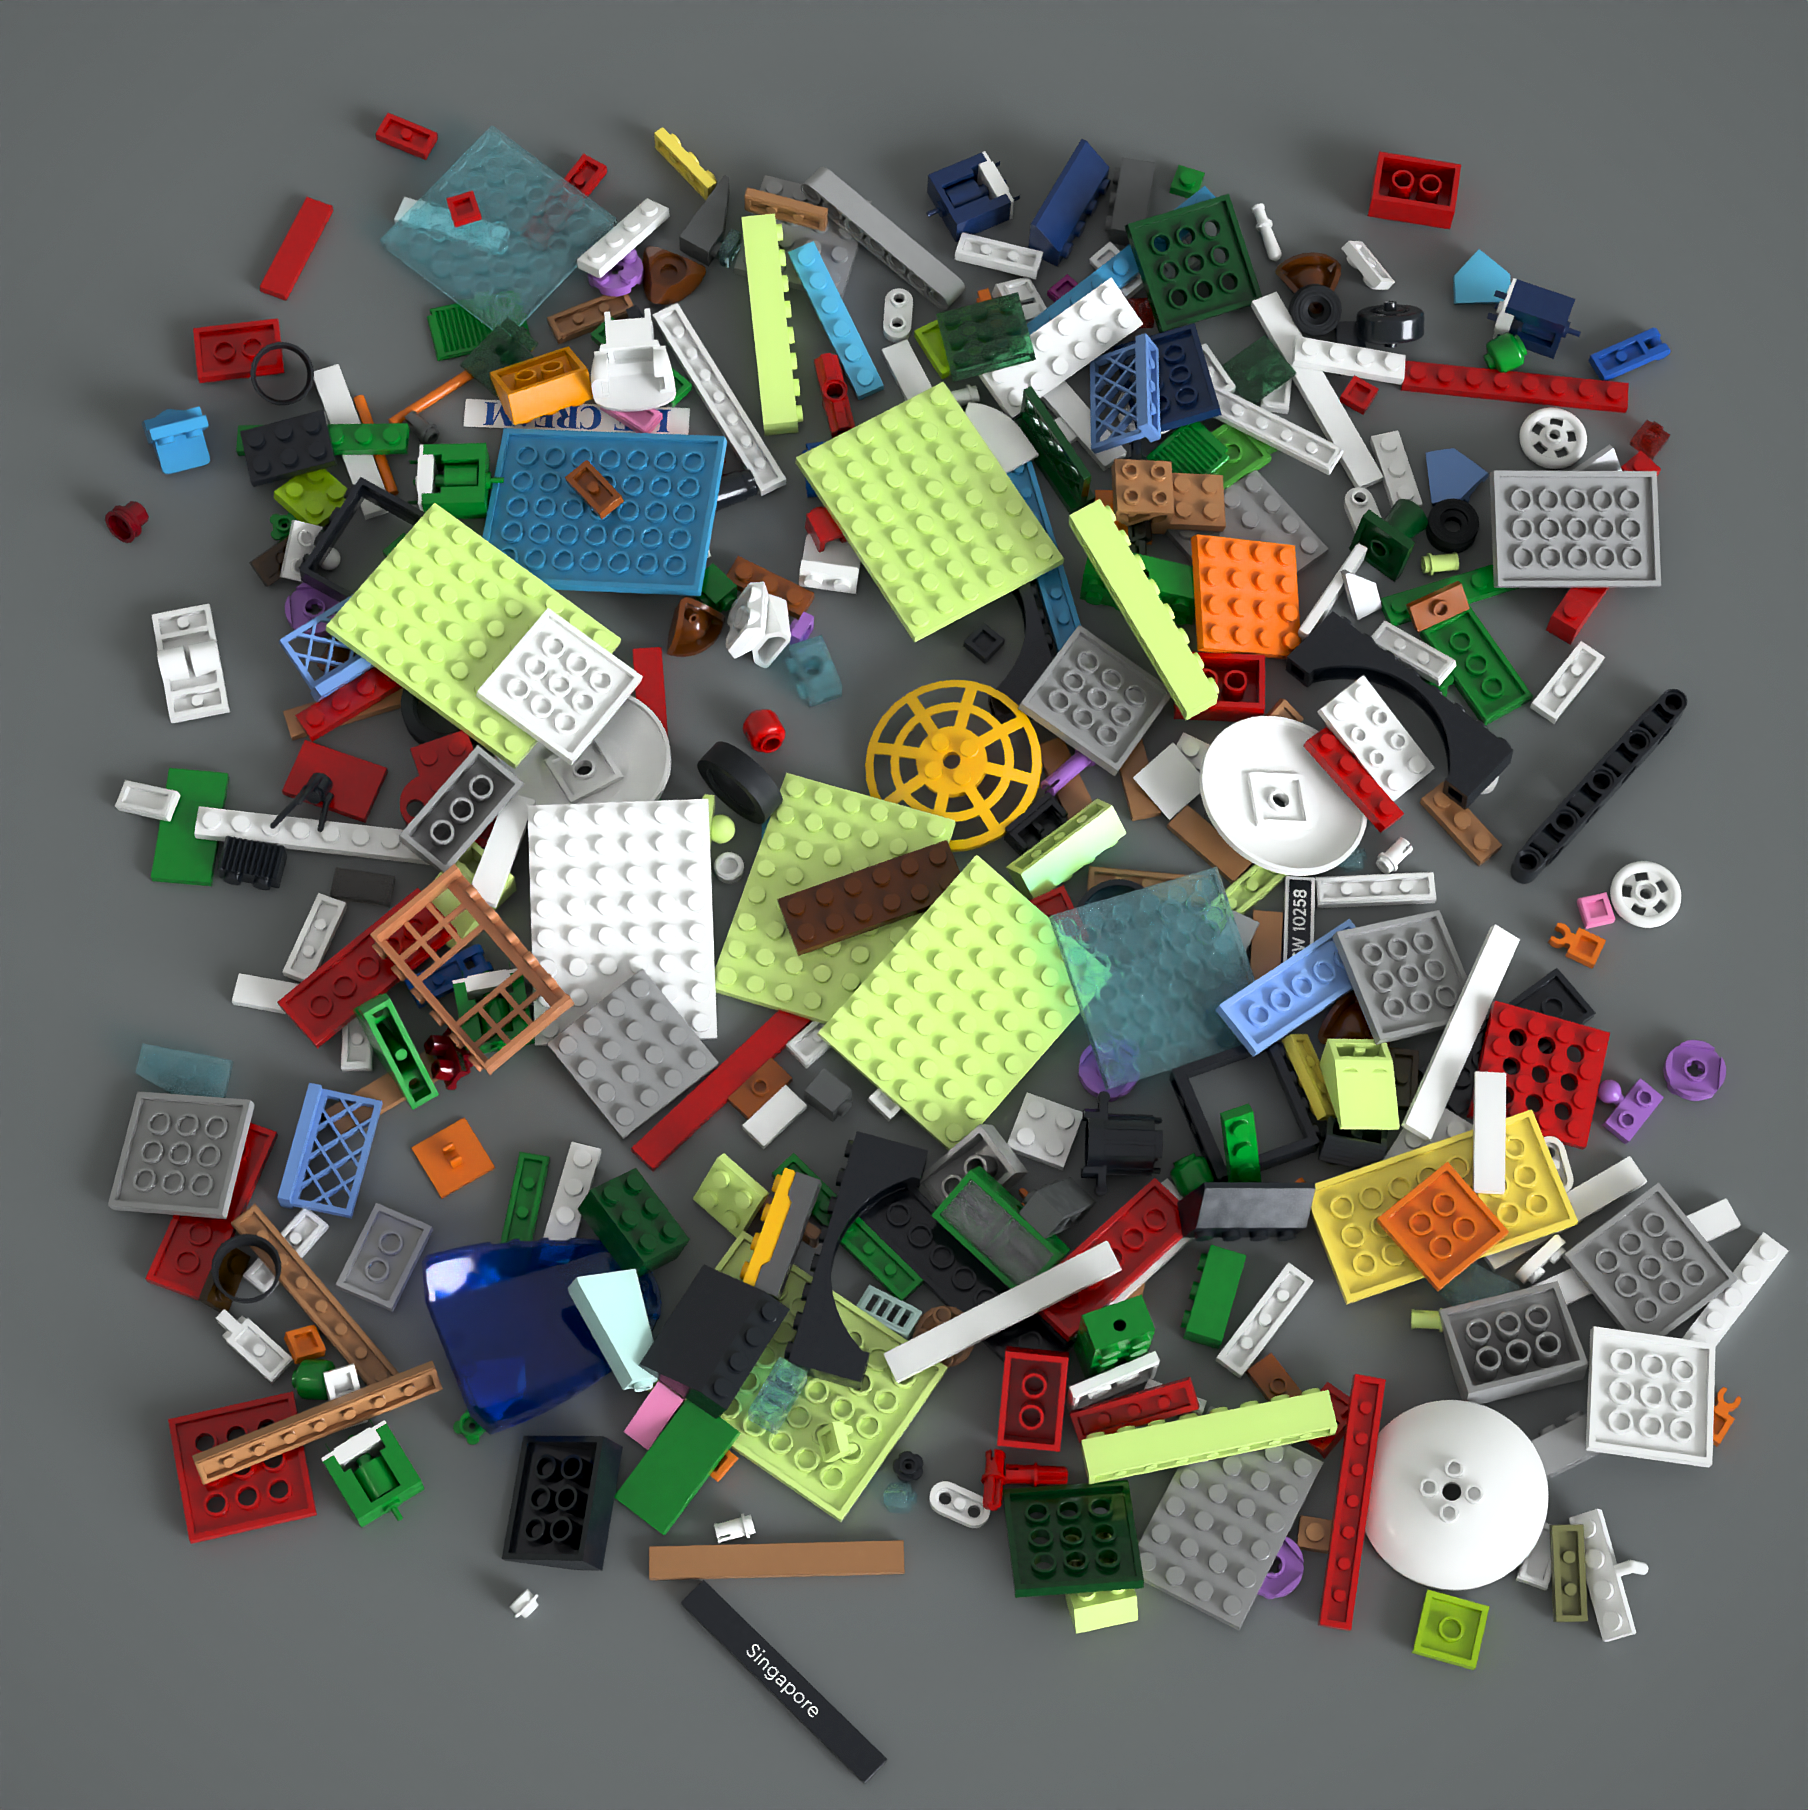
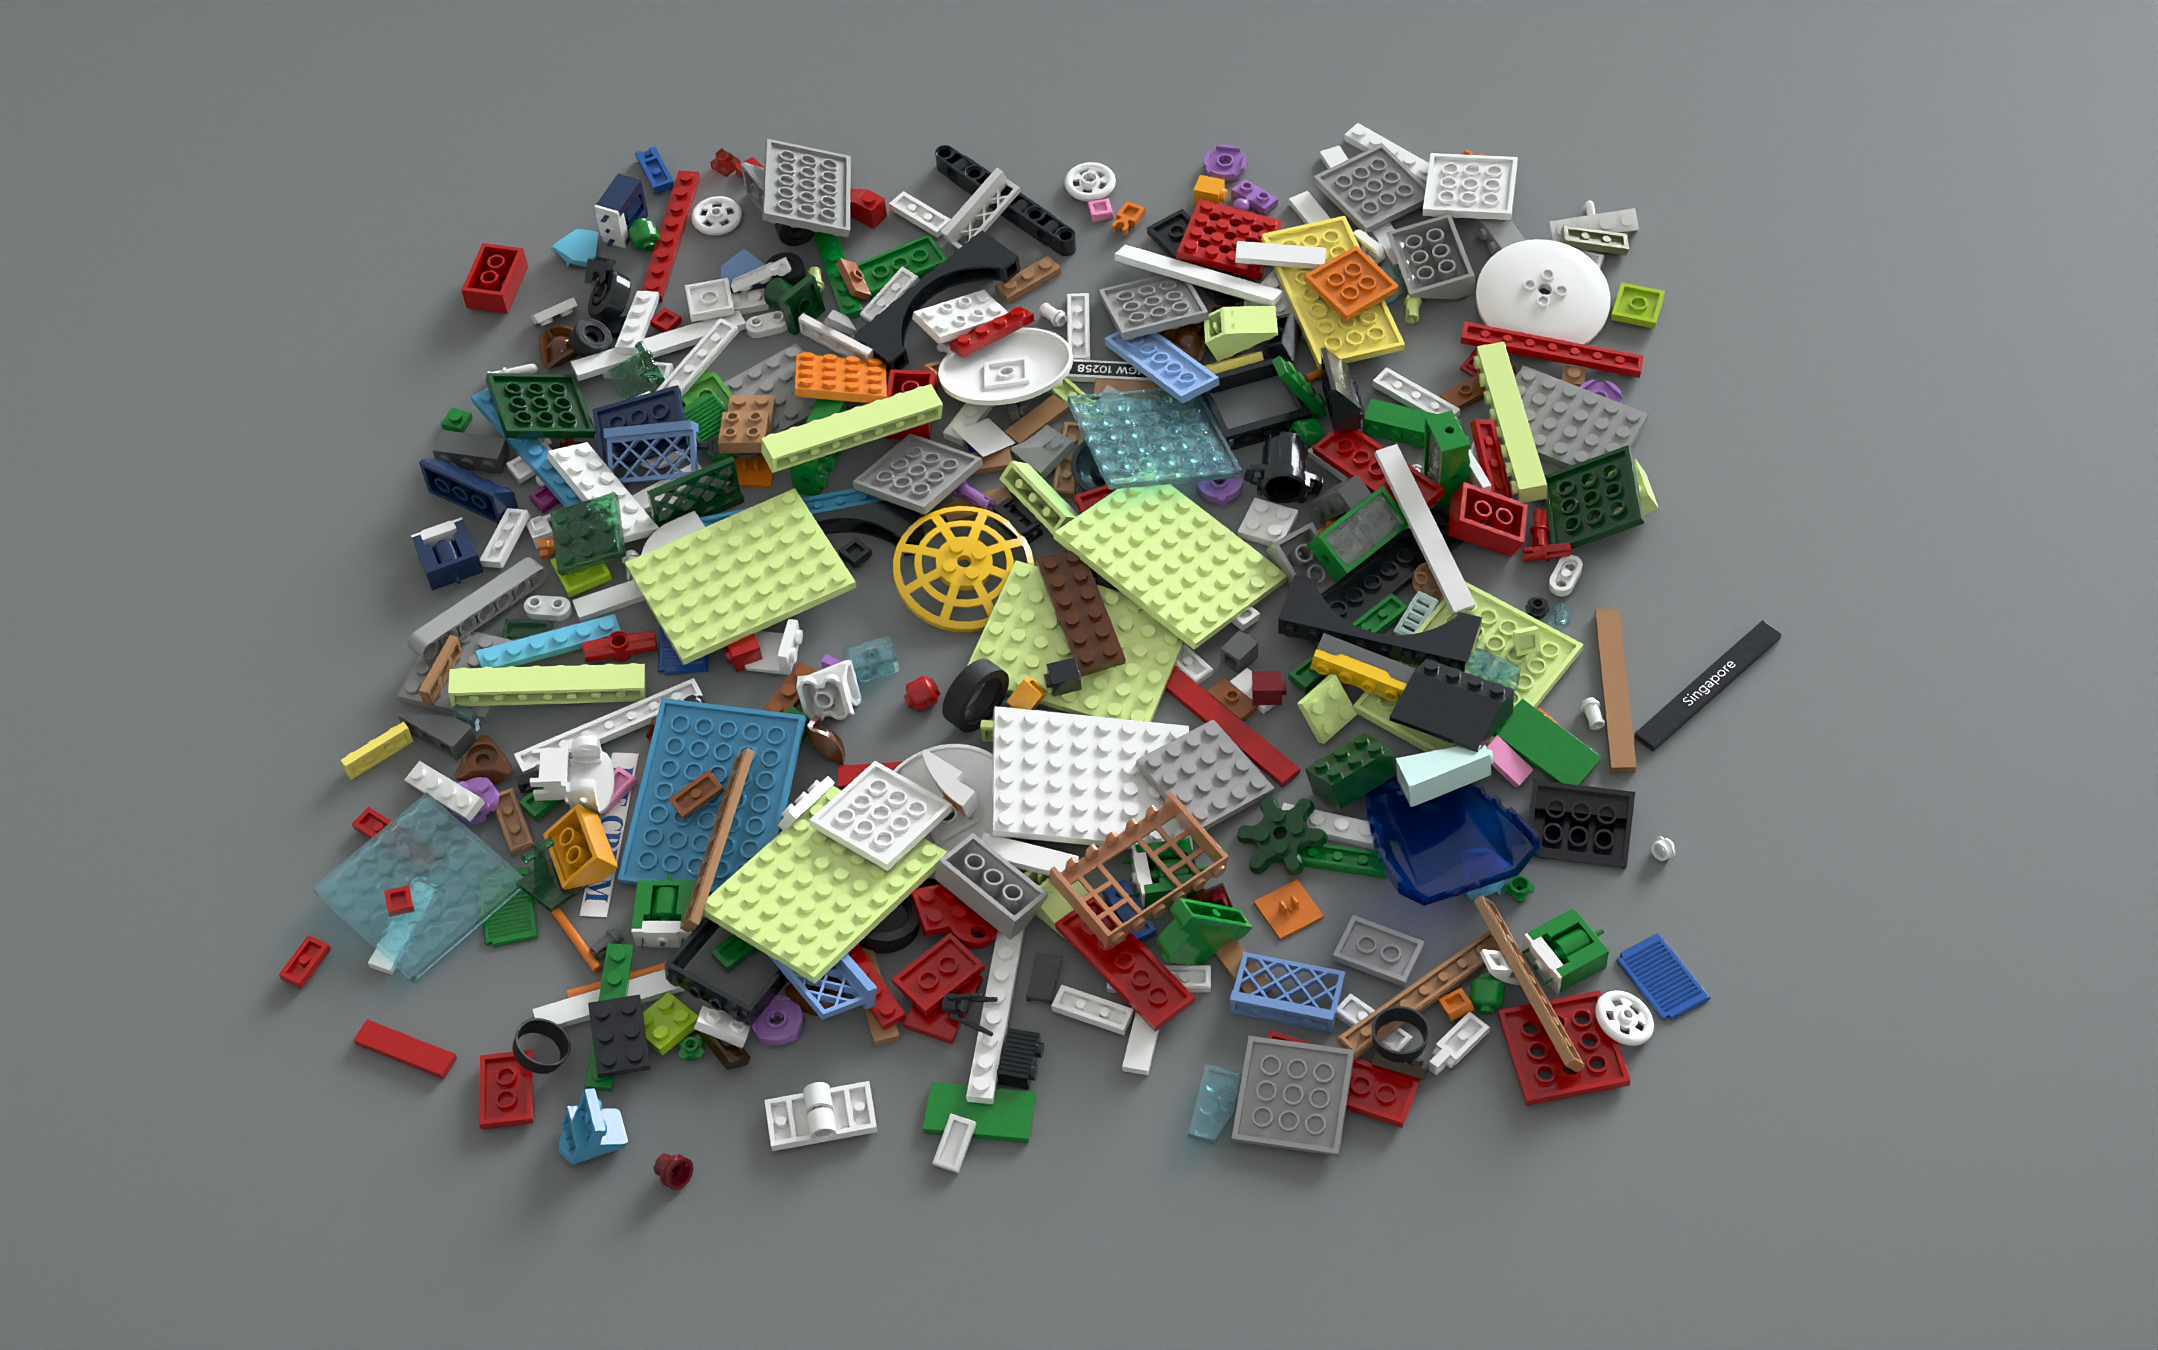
camera: 80 degrees left, 15 degrees down
(256, 1520) = (1624, 1018): none -> white plate
(342, 1593) = (1662, 977): none -> blue window
(360, 768) = (937, 972): none -> red plate
(526, 514) = (717, 840): none -> medium nougat tile
(546, 1162) = (1290, 847): none -> dark green plate
(594, 609) = (804, 801): none -> white plate
(605, 758) = (952, 784): none -> white slope
(747, 844) = (1027, 695): none -> light orange brick
(763, 1124) = (1268, 688): none -> dark red brick
(769, 880) = (1063, 677): none -> black brick
(863, 297) = (518, 629): none -> clear green tile
(1156, 853) = (1044, 450): none -> light grey plate
(1390, 439) = (709, 299): none -> white tile
(1429, 490) = (762, 274): none -> white hinge
(1431, 302) = (597, 268): none -> black hinge
(1571, 745) = (977, 206): none -> white fence
(1631, 1049) = (1210, 189): none -> light orange brick

